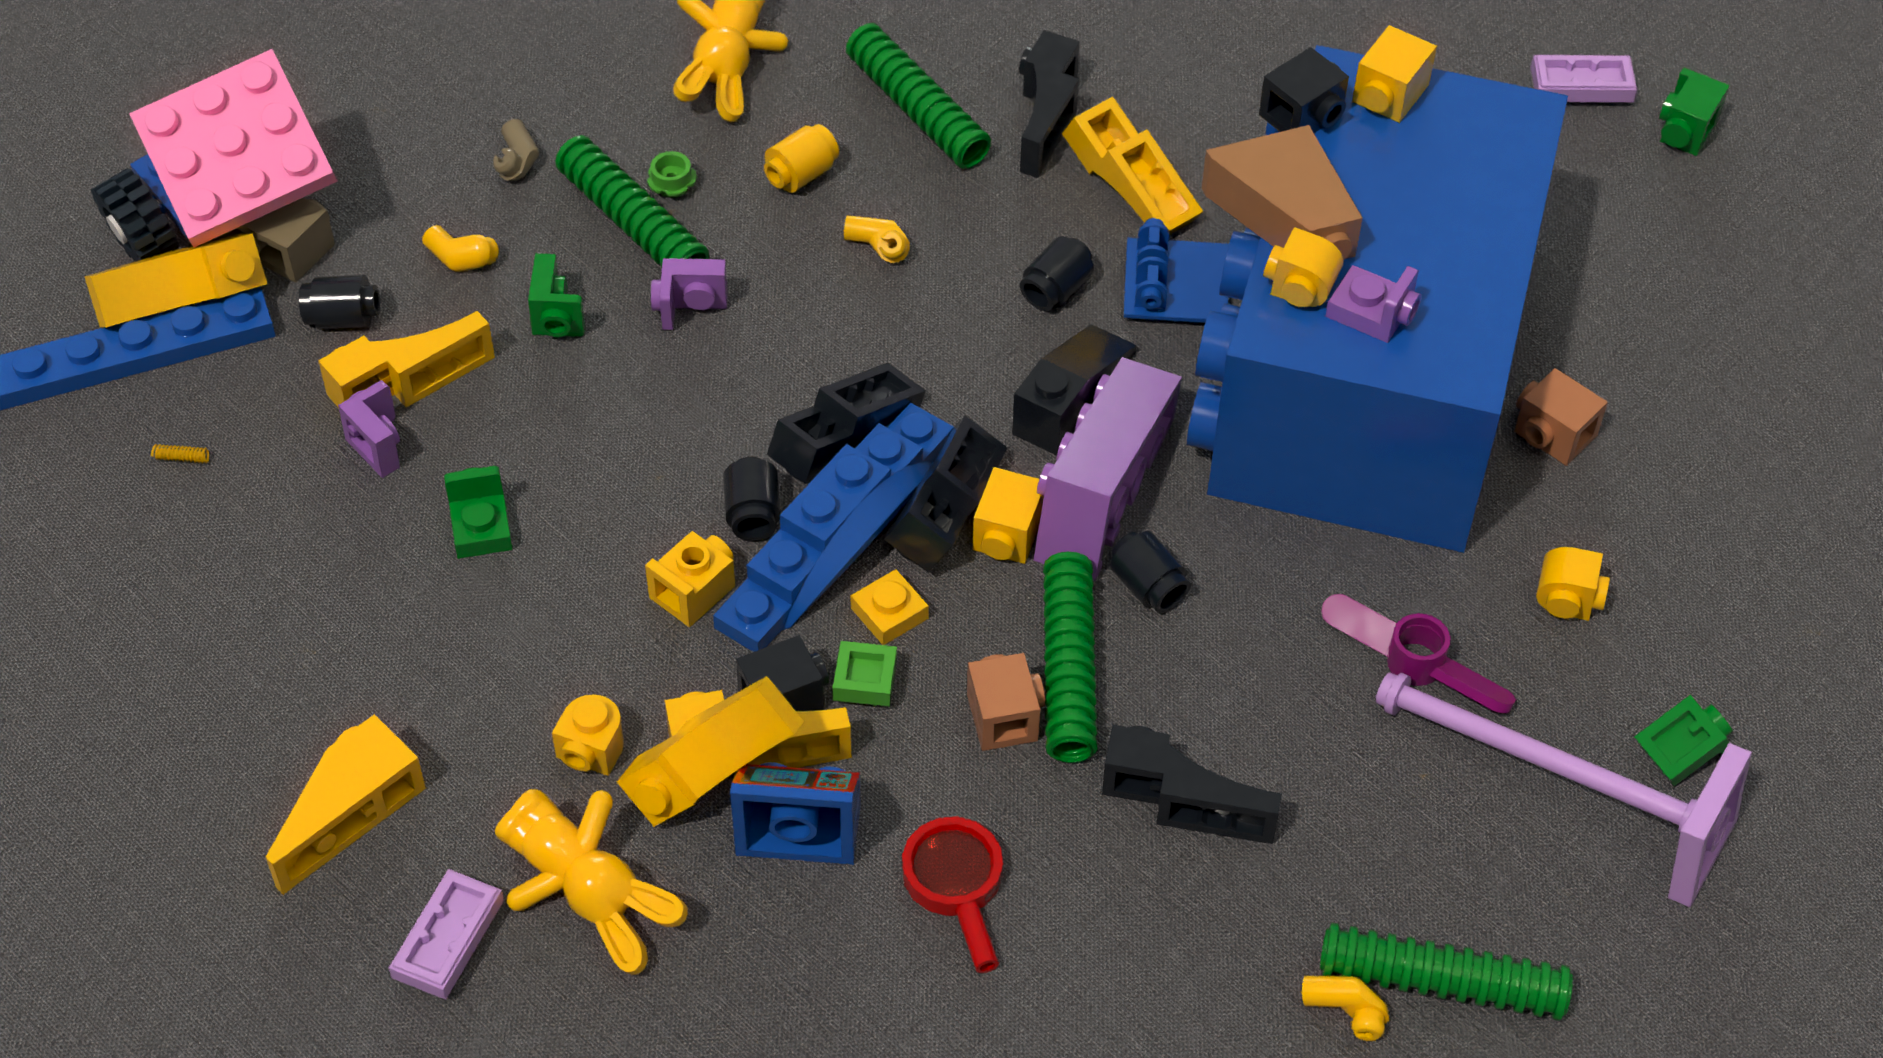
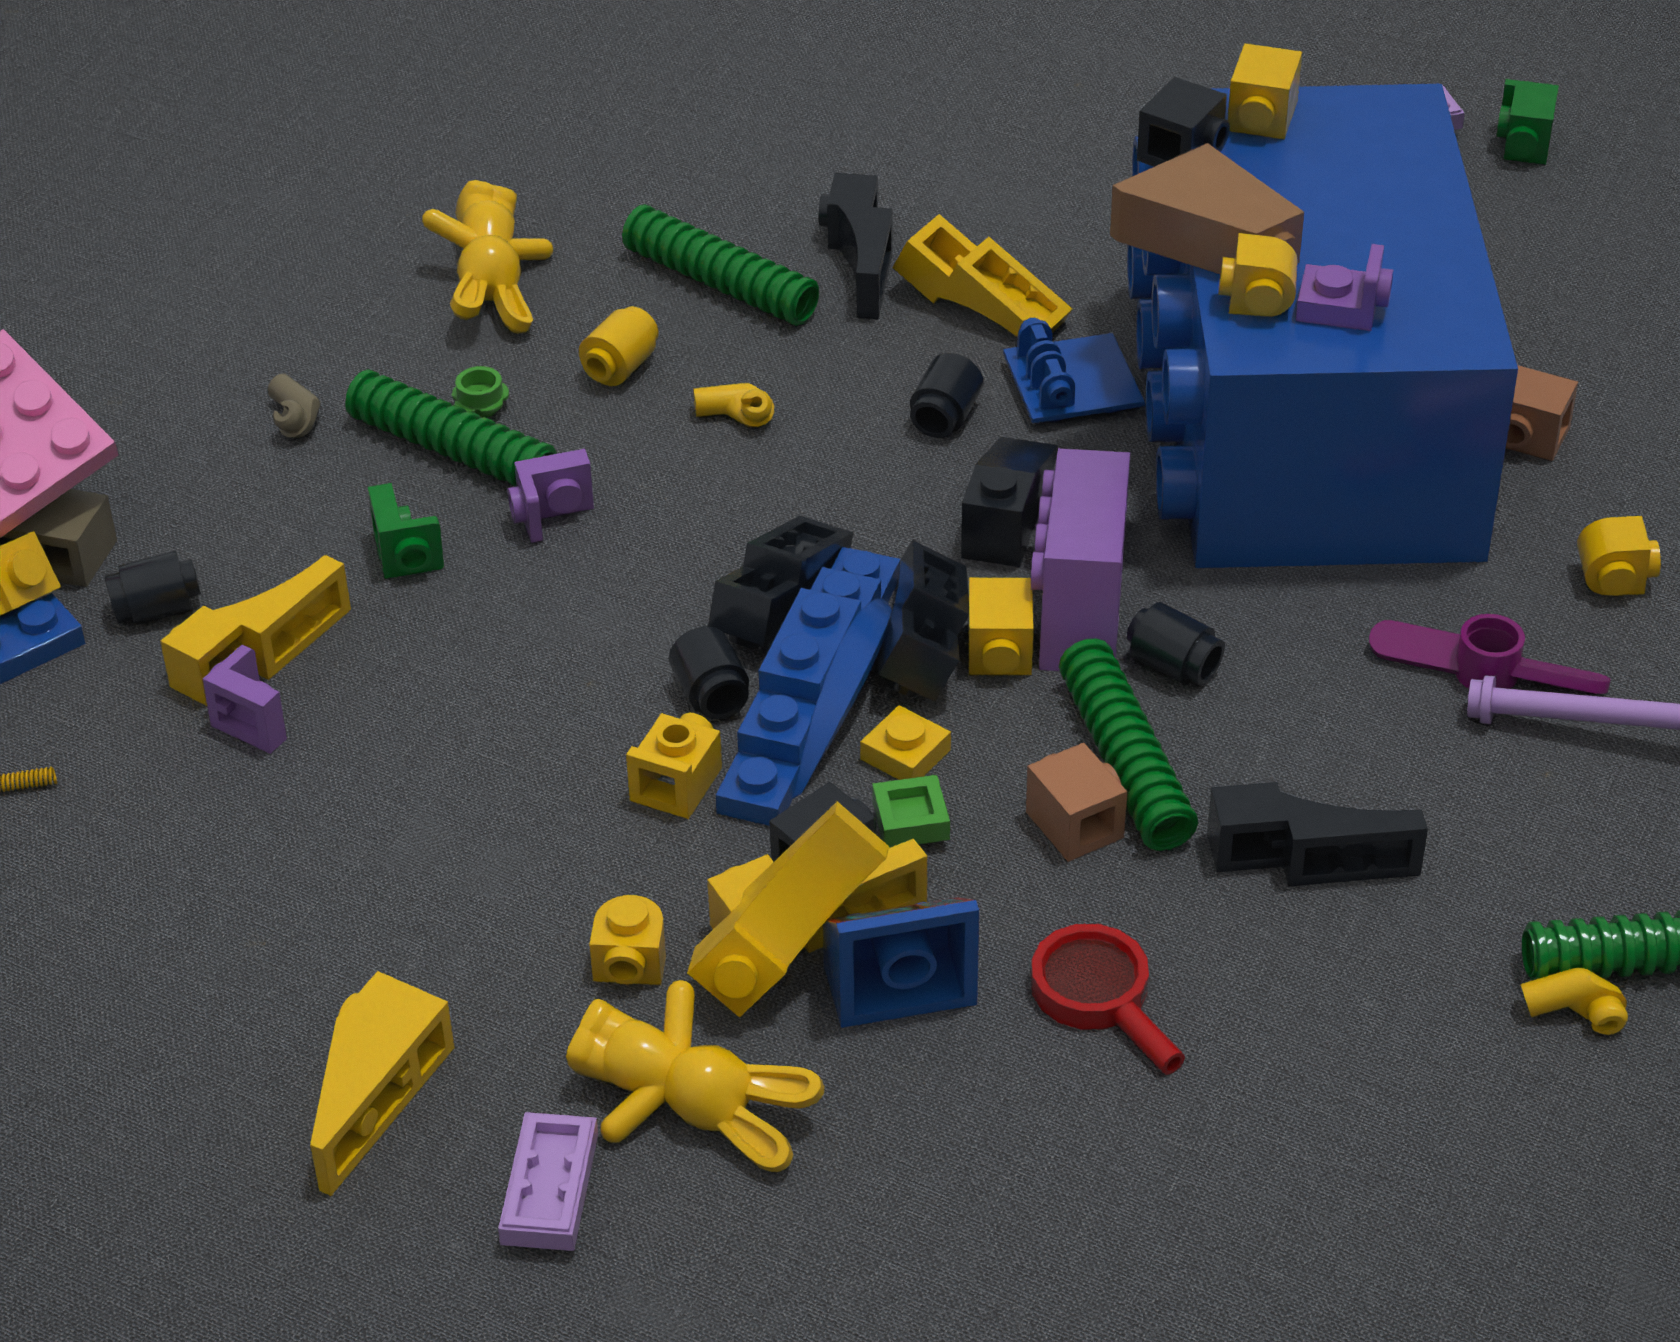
camera: 15 degrees left, 10 degrees down
(463, 252) = (272, 514): yellow arm -> none
(478, 511) = (401, 755): green bracket -> none

